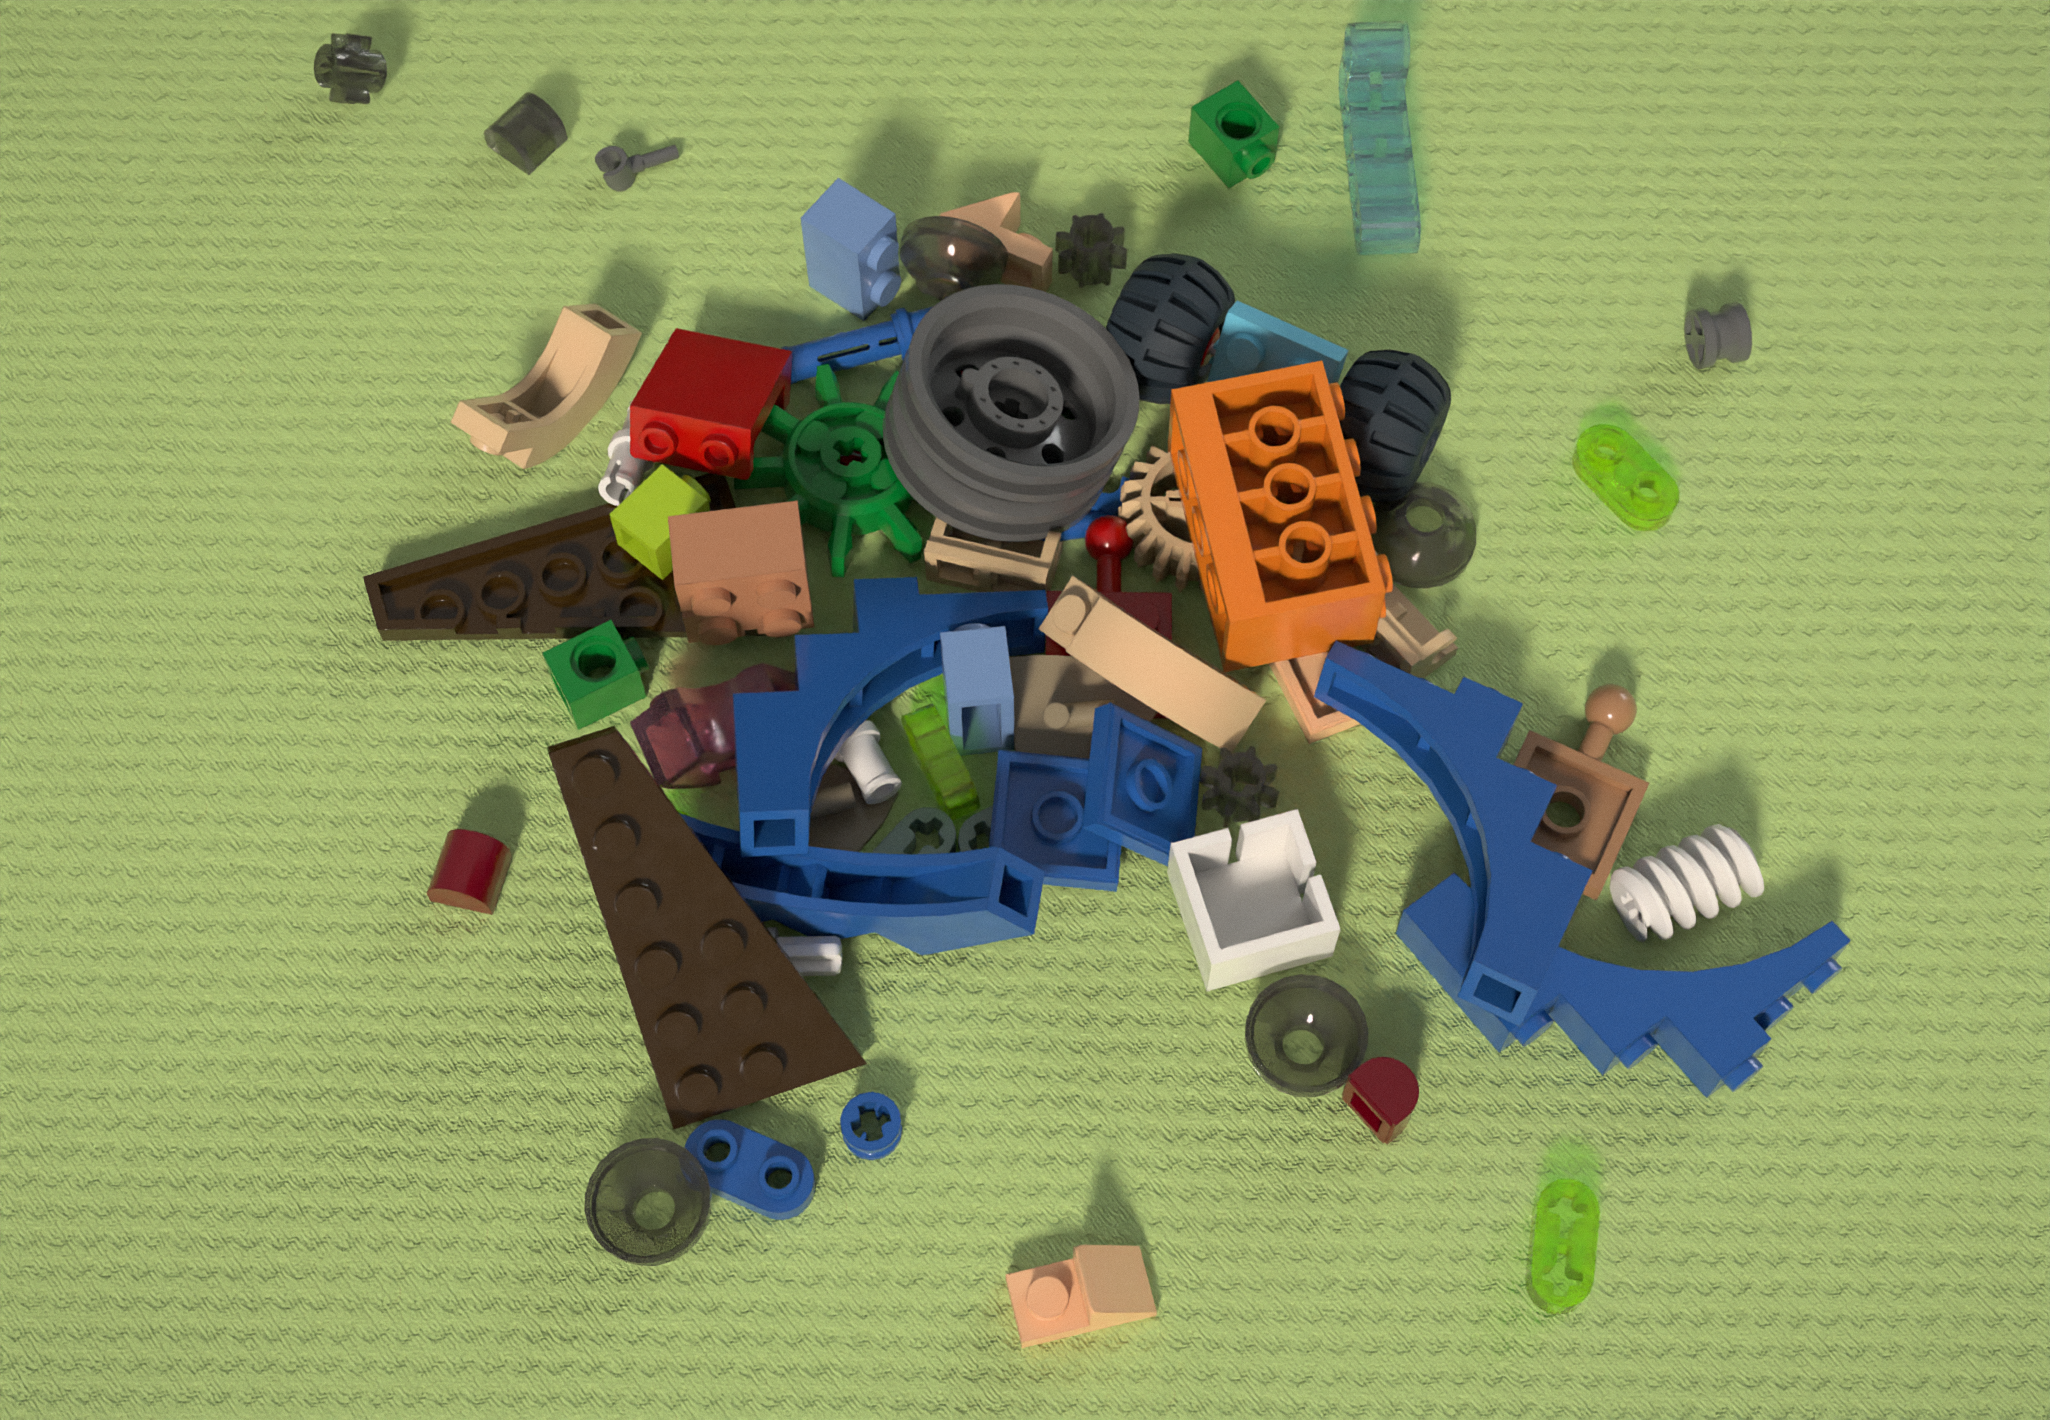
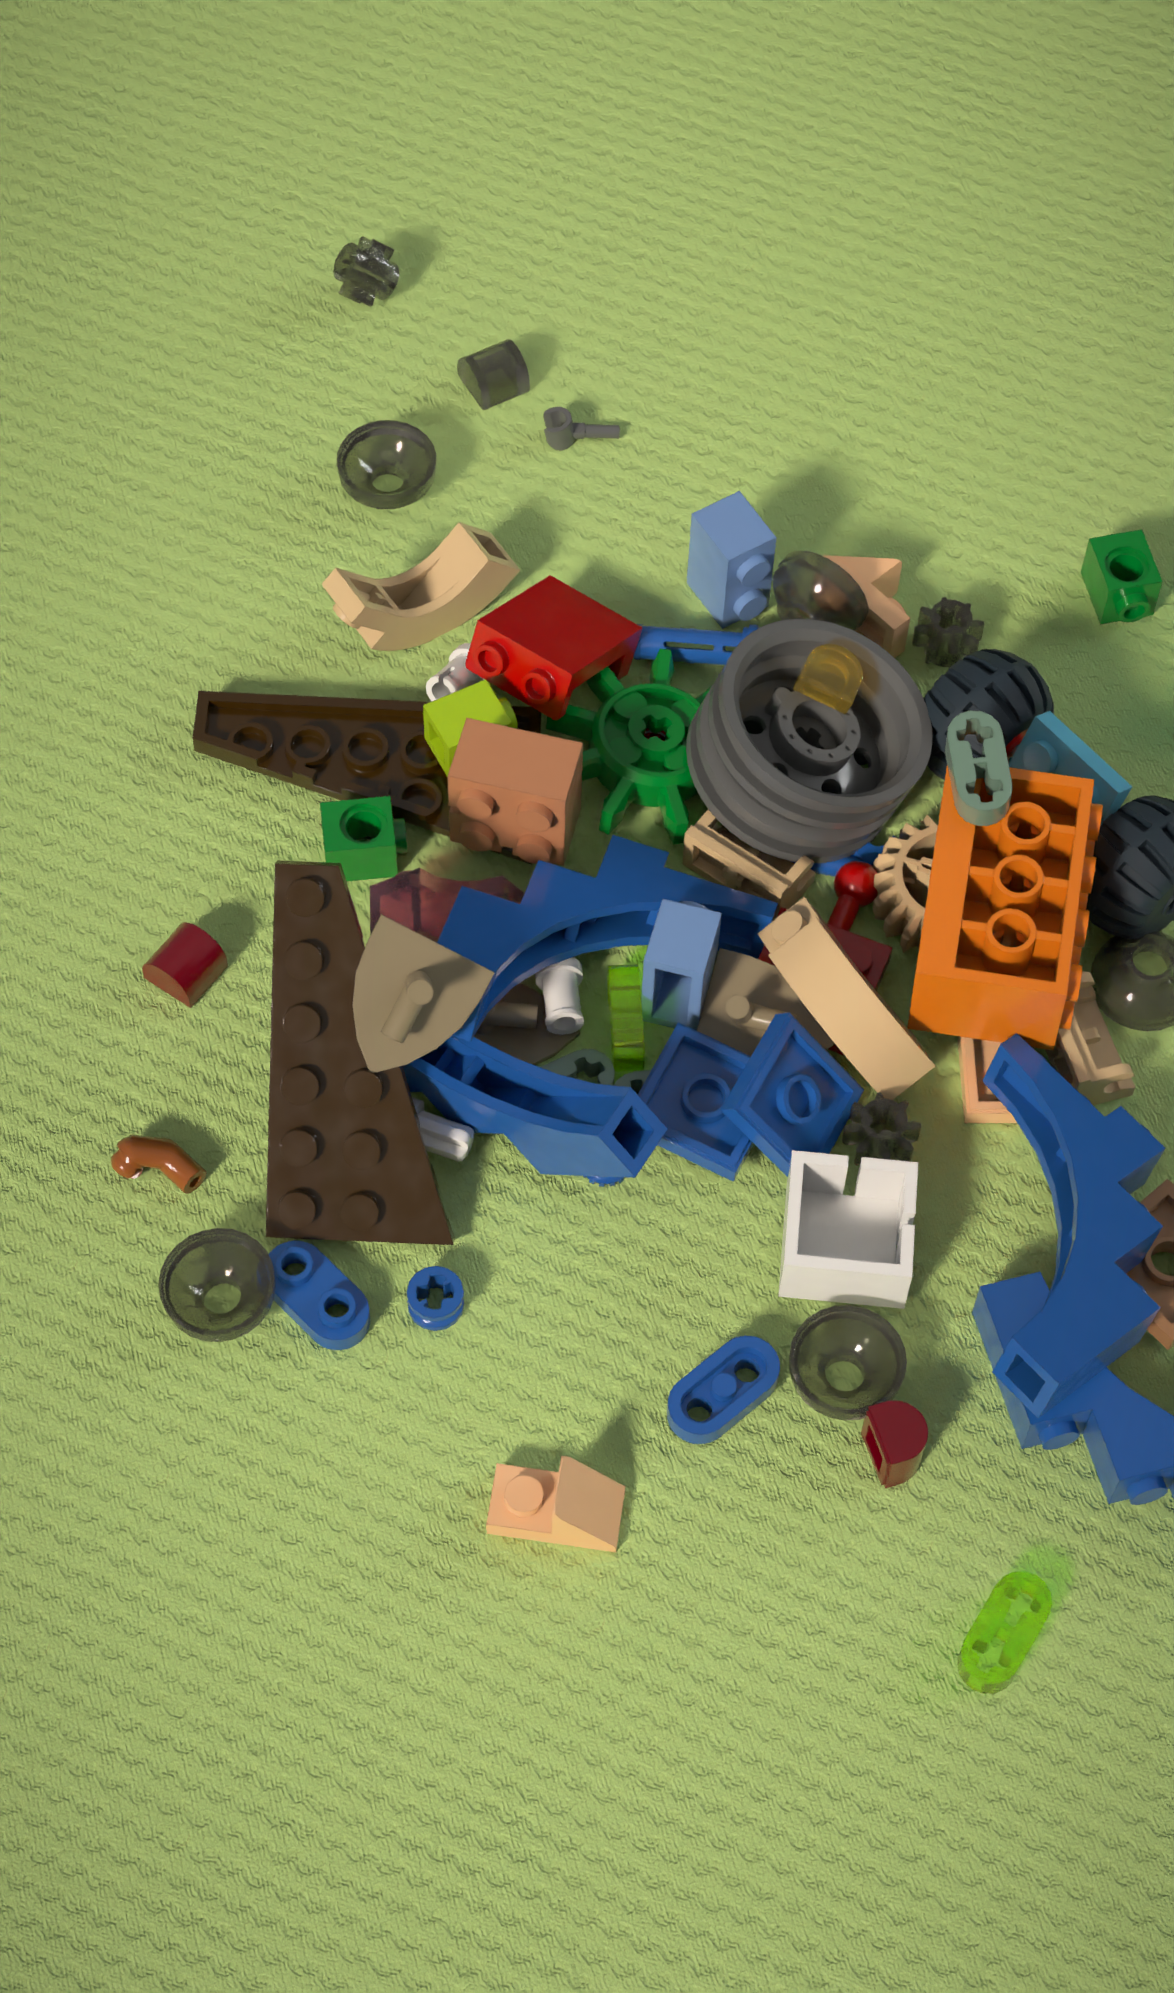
camera: 20 degrees right, 5 degrees down
(456, 249) = (386, 449): none -> clear smoke piece
(527, 1083) = (158, 1153): none -> dark orange arm
(737, 834) = (411, 995): none -> dark tan shield
(1011, 341) = (830, 677): none -> clear yellow tile
(1194, 1112) = (720, 1391): none -> blue plate
(1196, 396) = (991, 766): none -> sand green beam

